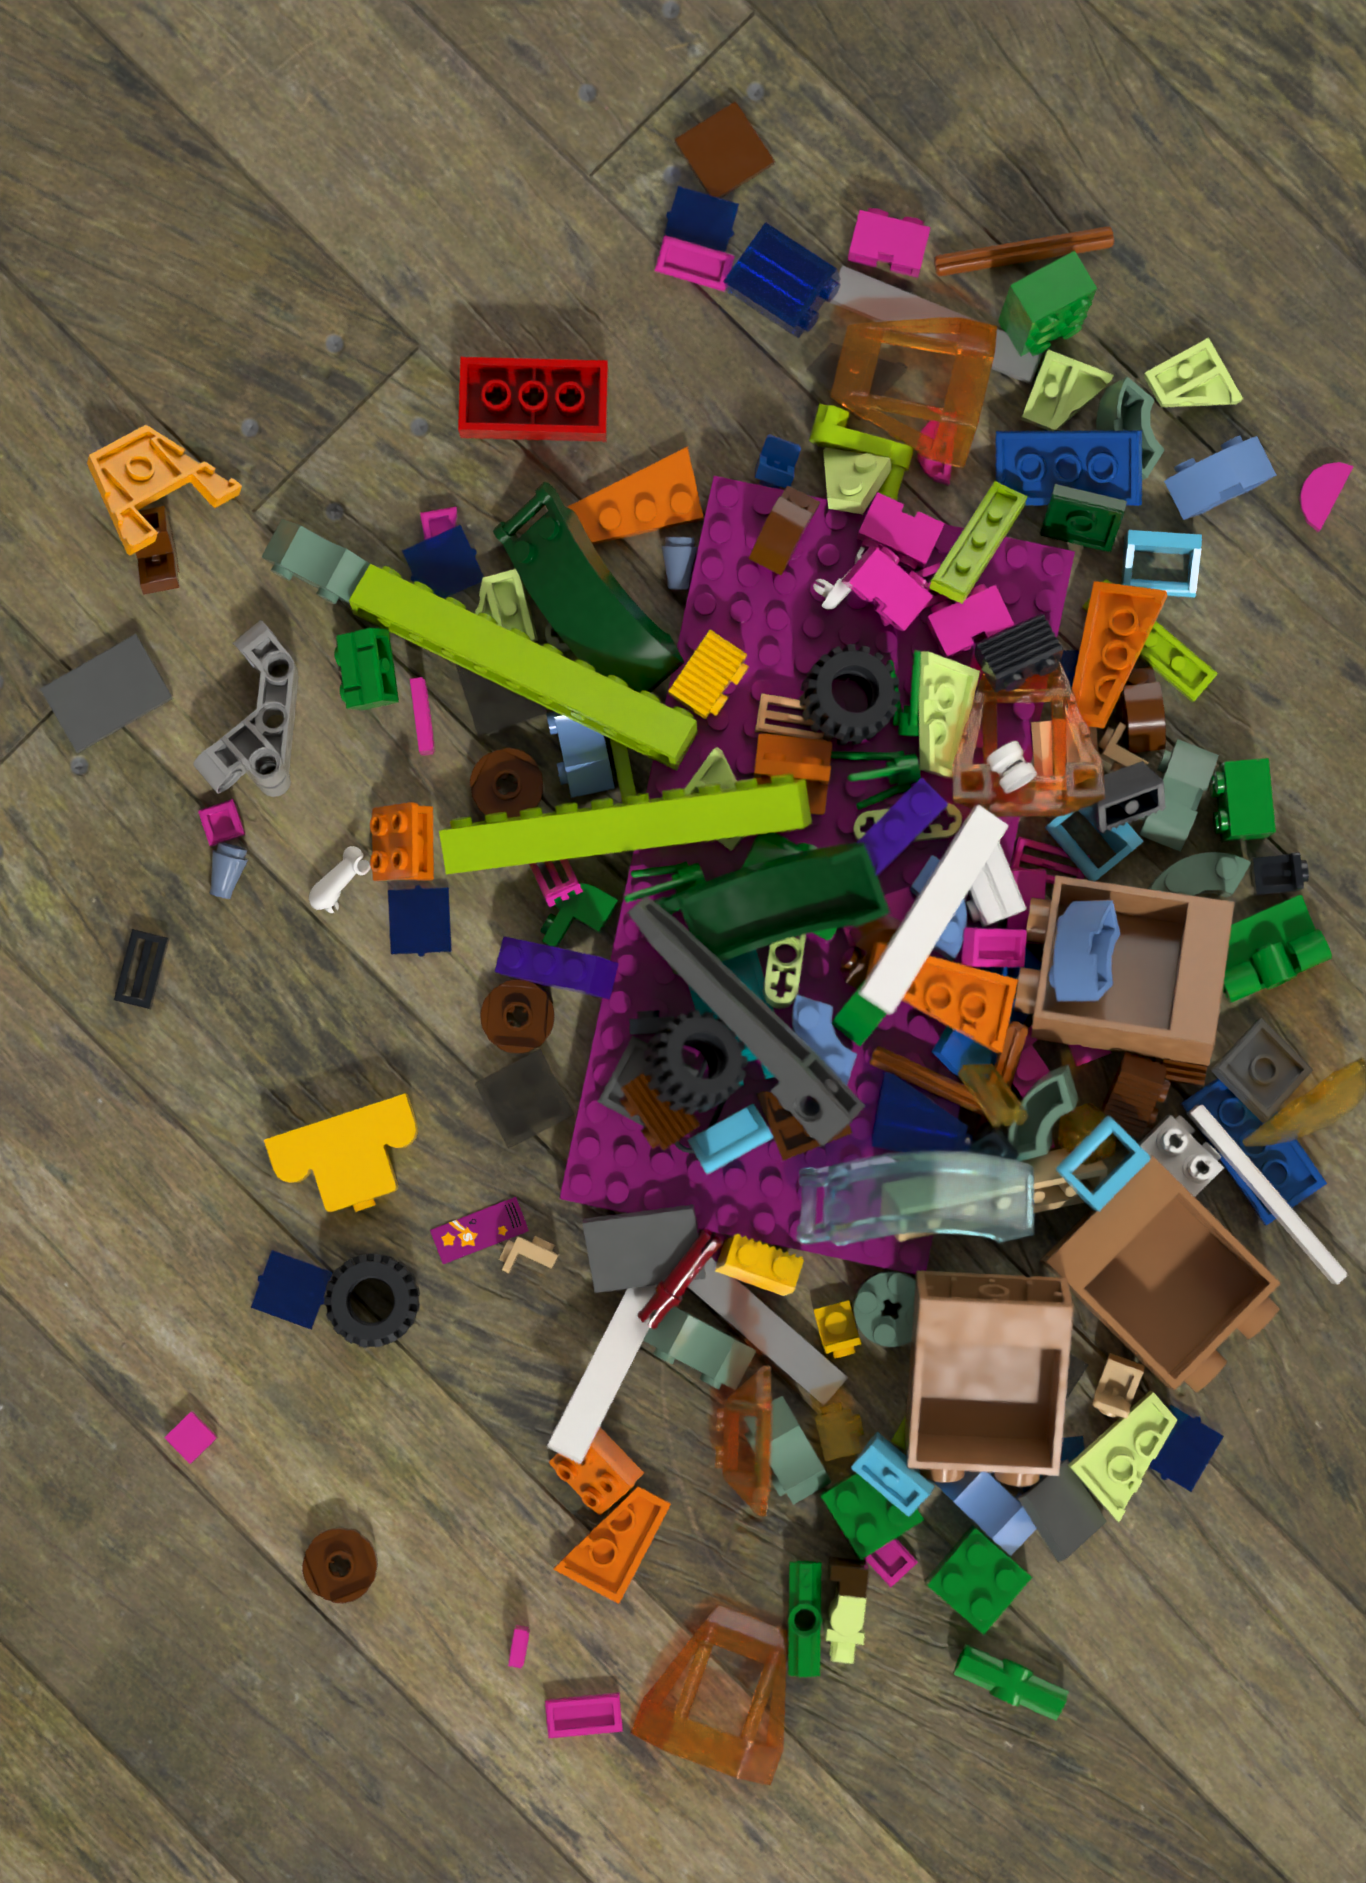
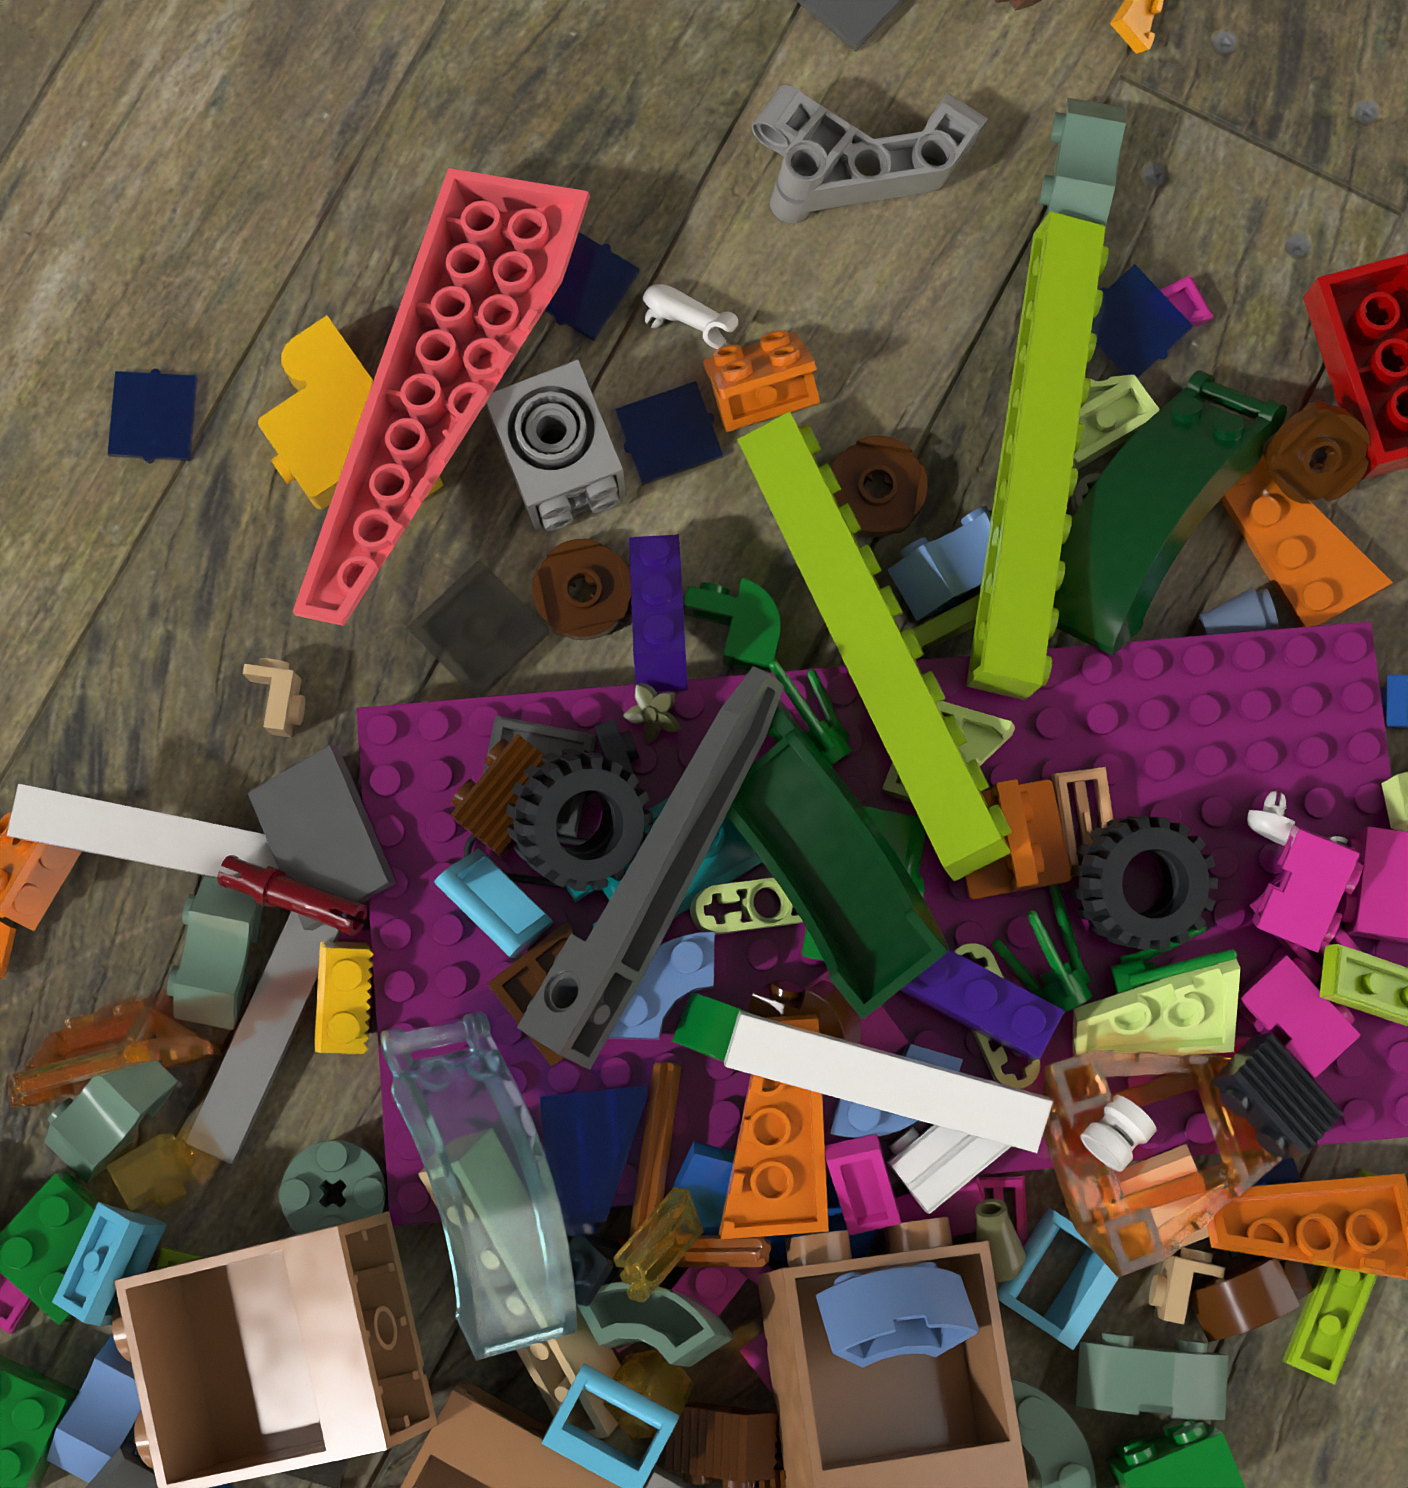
camera: 75 degrees right, 5 degrees down
(155, 972) = (503, 131): black tile -> none
(221, 822) = (717, 154): dark pink tile -> none
(227, 868) = (661, 174): sand blue cone -> none
(289, 949) = (591, 287): none -> clear blue piece
(300, 1036) = (468, 307): none -> coral wedge
(339, 1304) = (134, 485): black tyre -> none
(366, 669) = (969, 265): green brick -> none
(422, 716) = (931, 353): dark pink tile -> none
(437, 1008) = (563, 476): none -> light grey brick
(479, 1230) = (302, 640): magenta sticker -> none
(494, 705) = (974, 440): clear smoke plate -> none
(561, 888) = (764, 588): dark pink tile -> none
(568, 476) = (1304, 433): none -> reddish brown plate
(628, 991) = (653, 710): none -> olive plant
(708, 675) = (1106, 689): yellow brick -> none
(783, 530) = (1334, 727): reddish brown brick -> none
(837, 1329) = (291, 1130): yellow bracket -> none
(1060, 865) = (1005, 1246): none -> olive cone
(1128, 795) = (1128, 1308): black brick -> none

